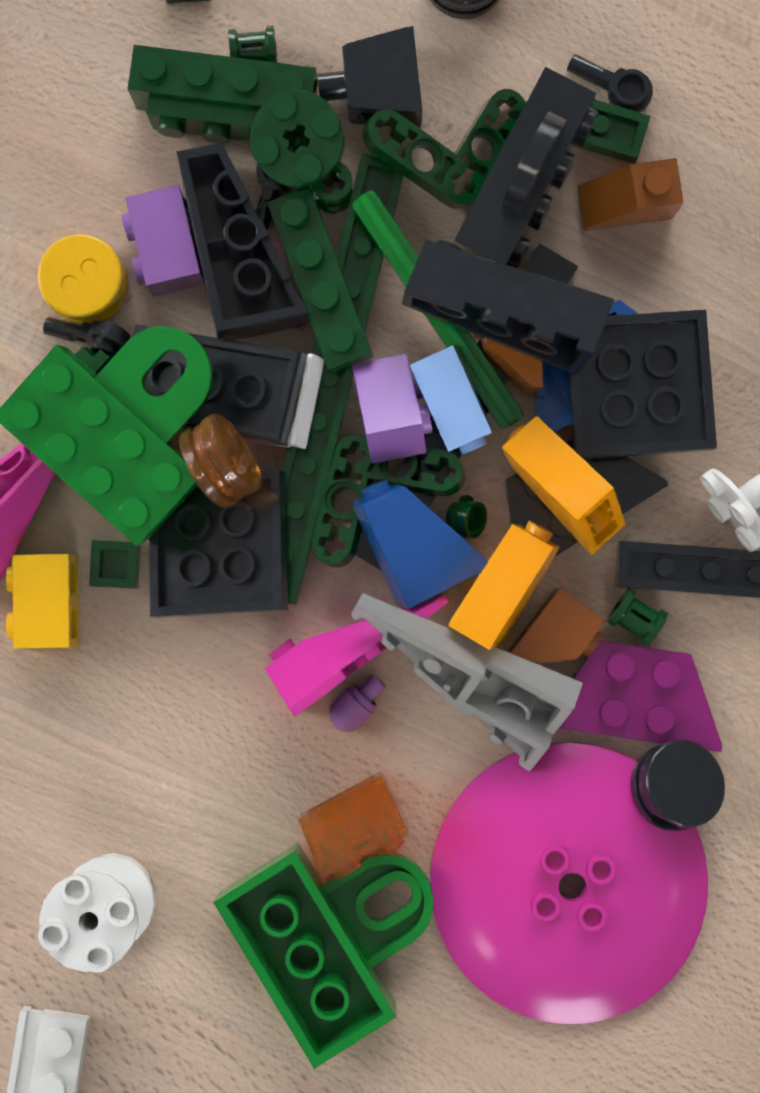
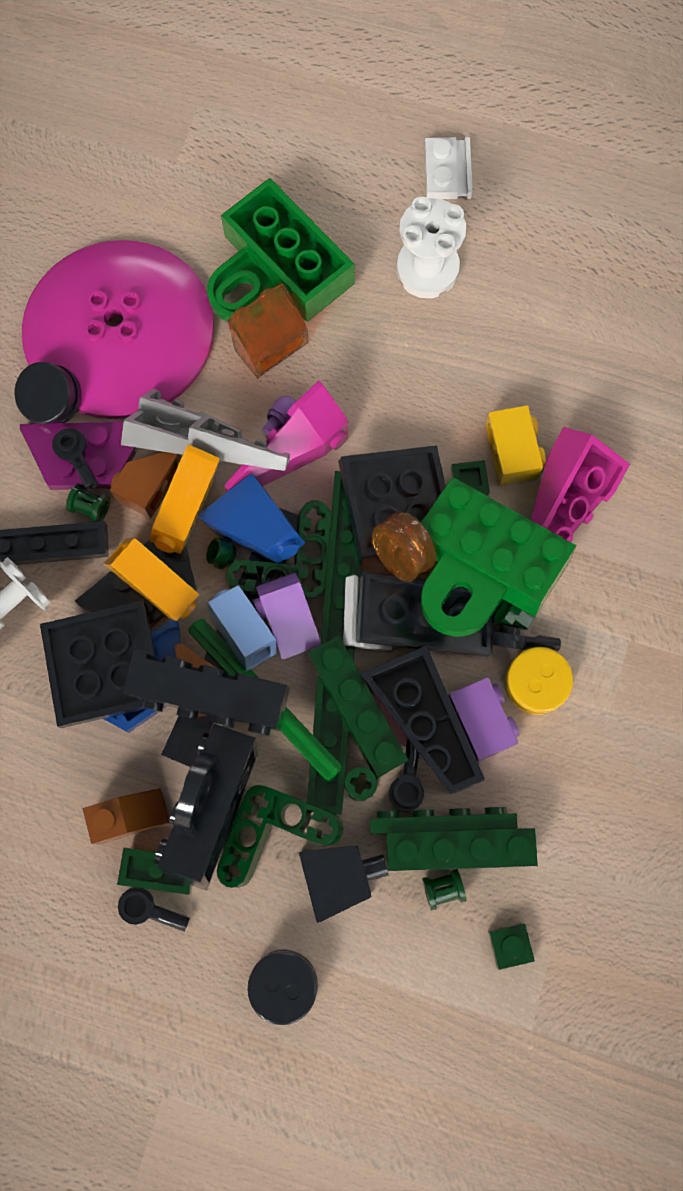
camera: 170 degrees right, 10 degrees down
(286, 113) = (373, 816): dark green plate -> none
(652, 697) = (71, 446): none -> black plate

